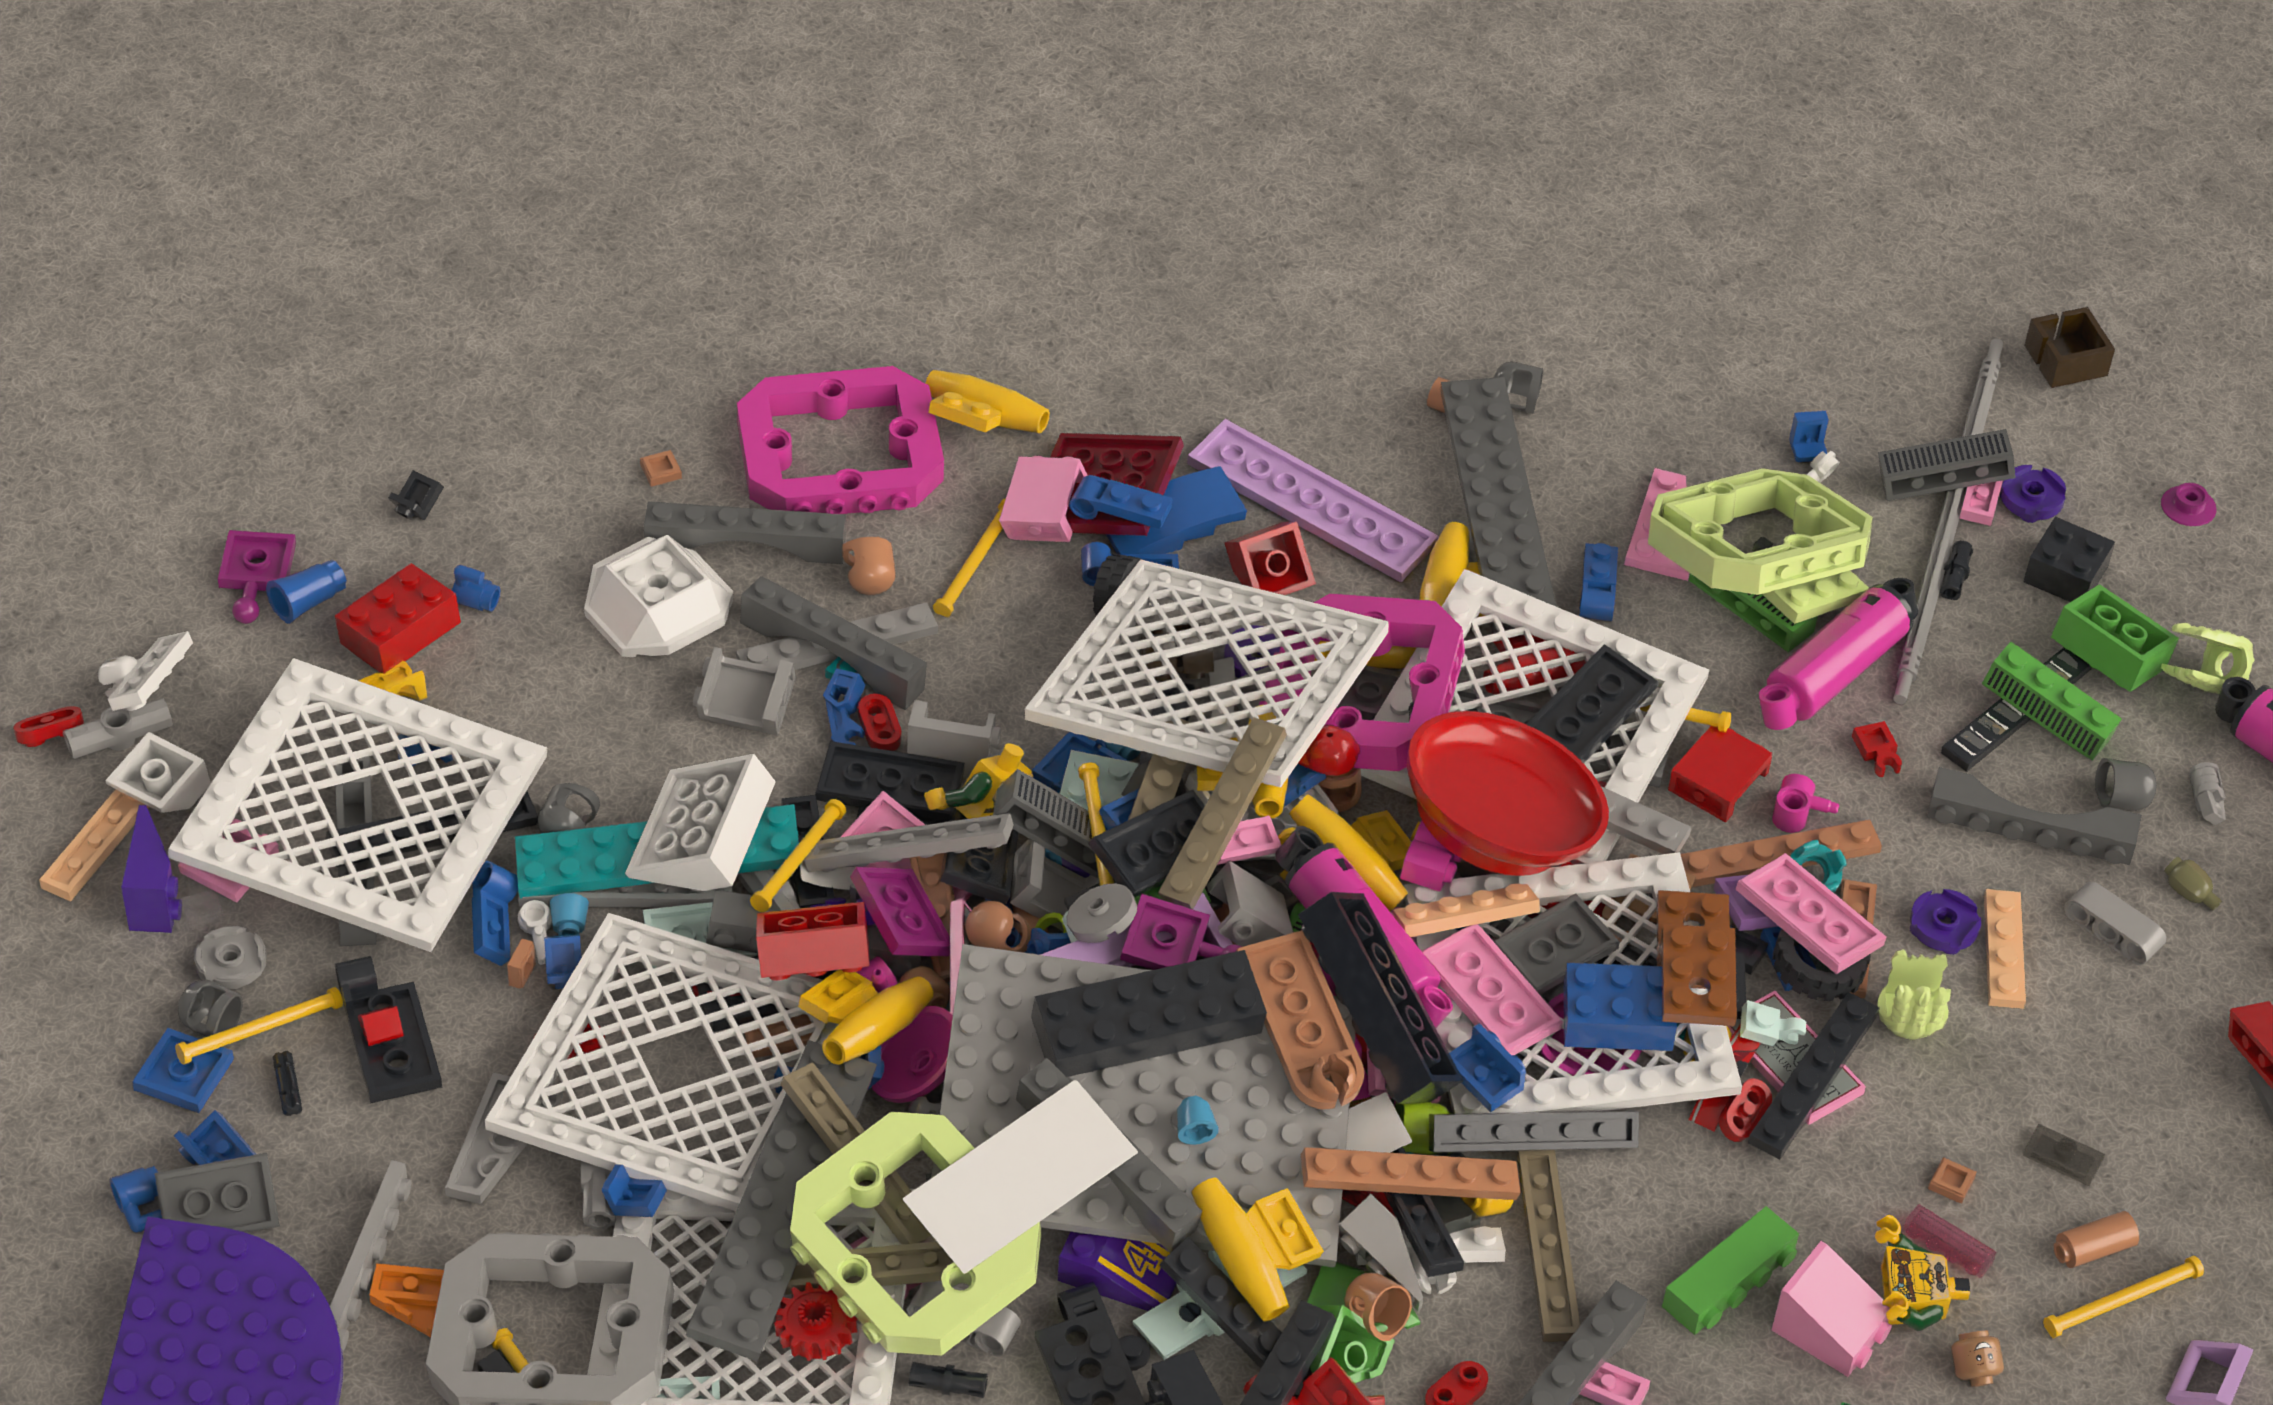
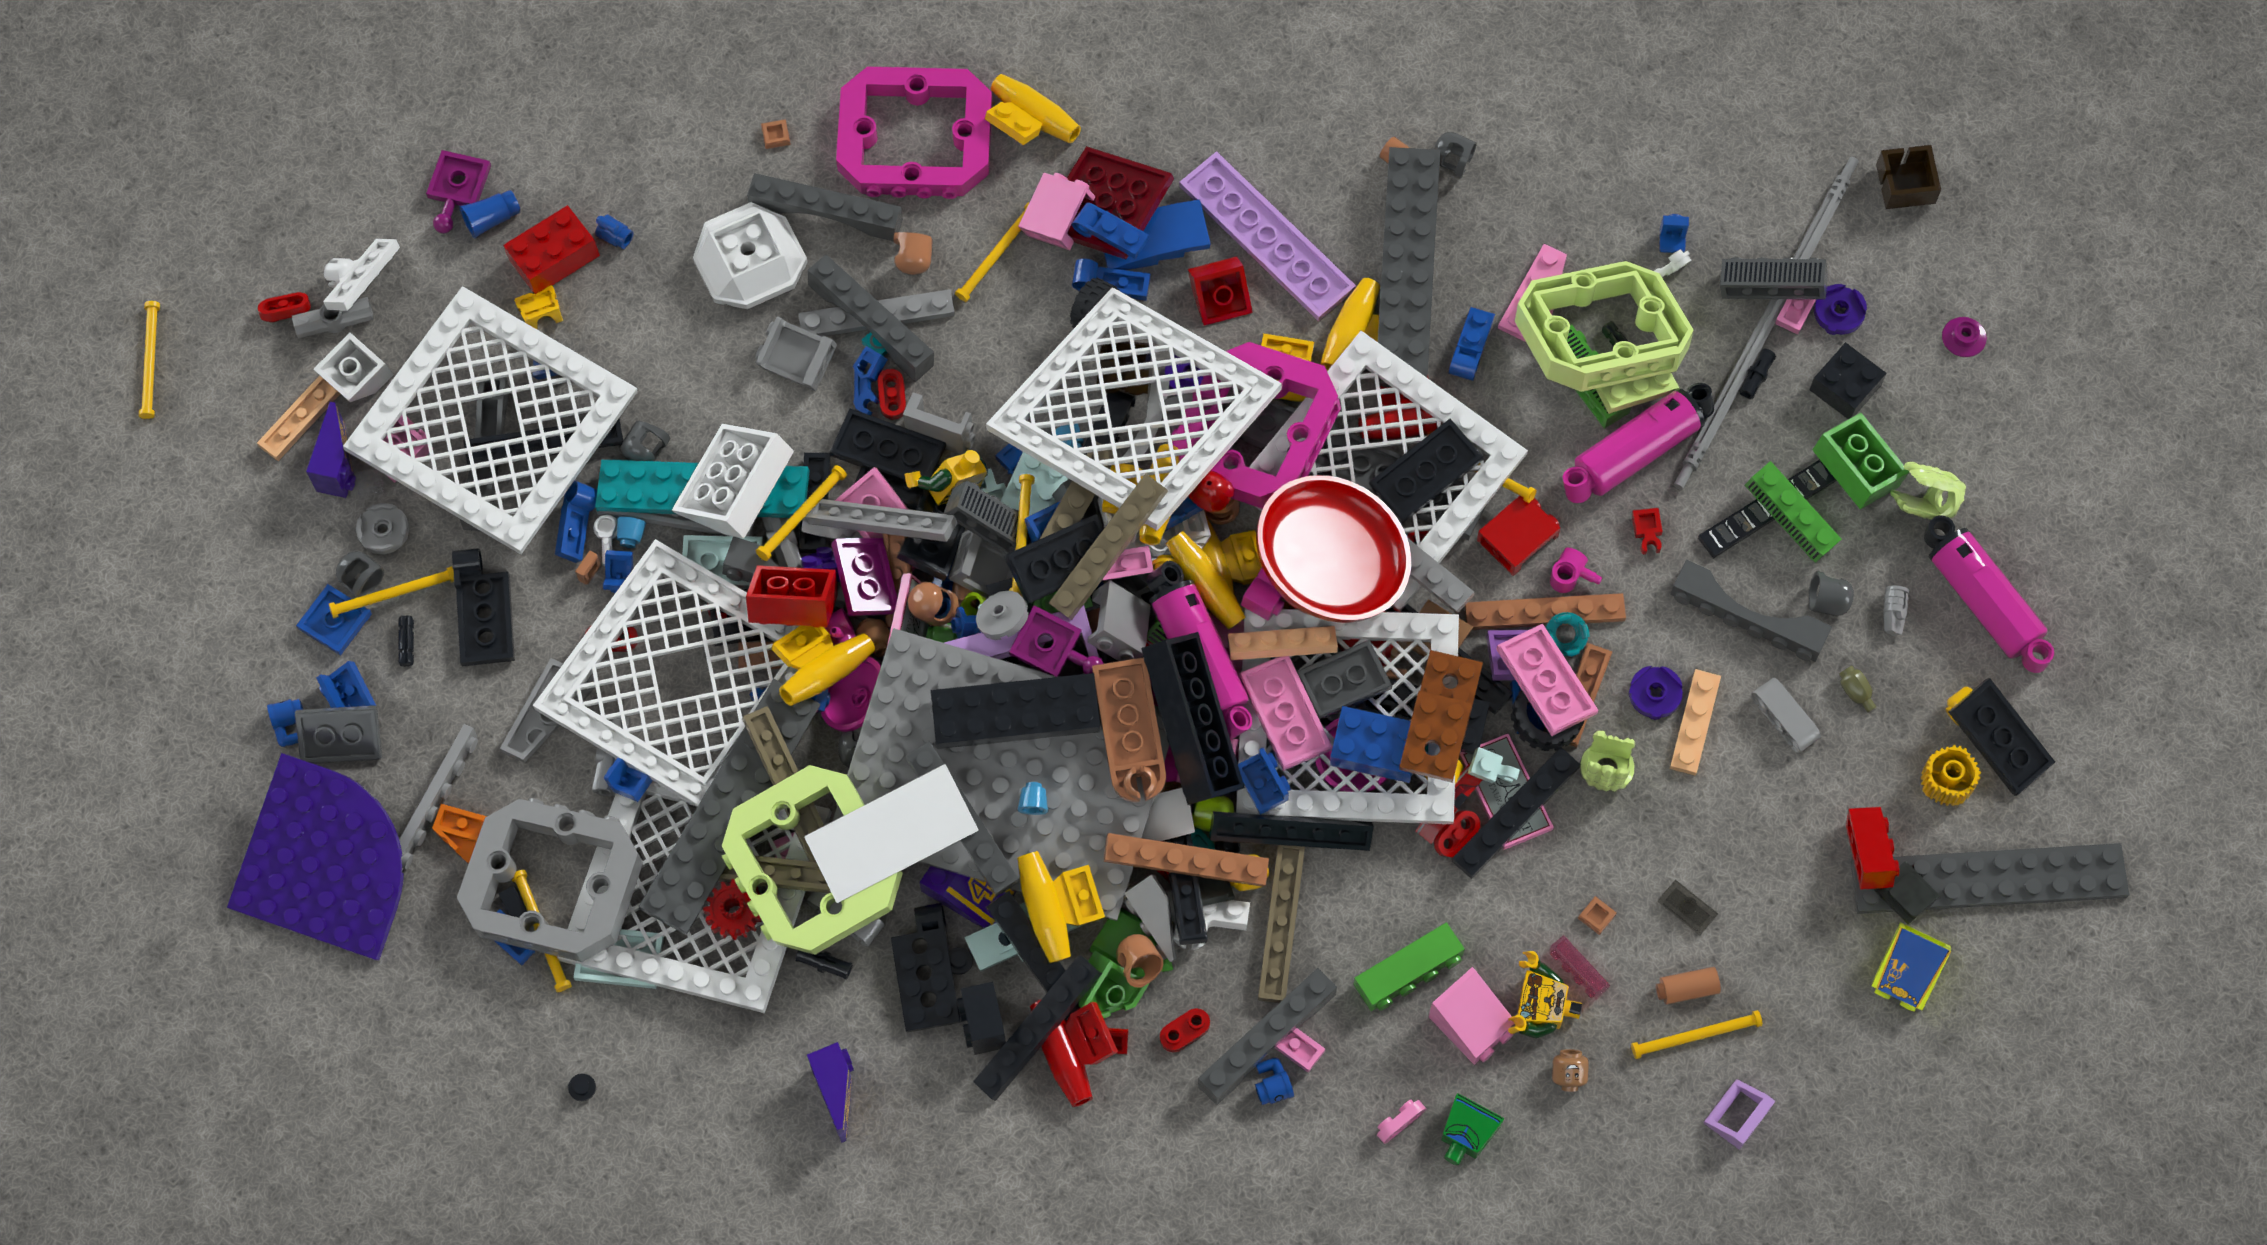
camera: 15 degrees right, 20 degrees up
(381, 1025) = (476, 607): red slope -> none
(416, 496) = (586, 137): black bracket -> none

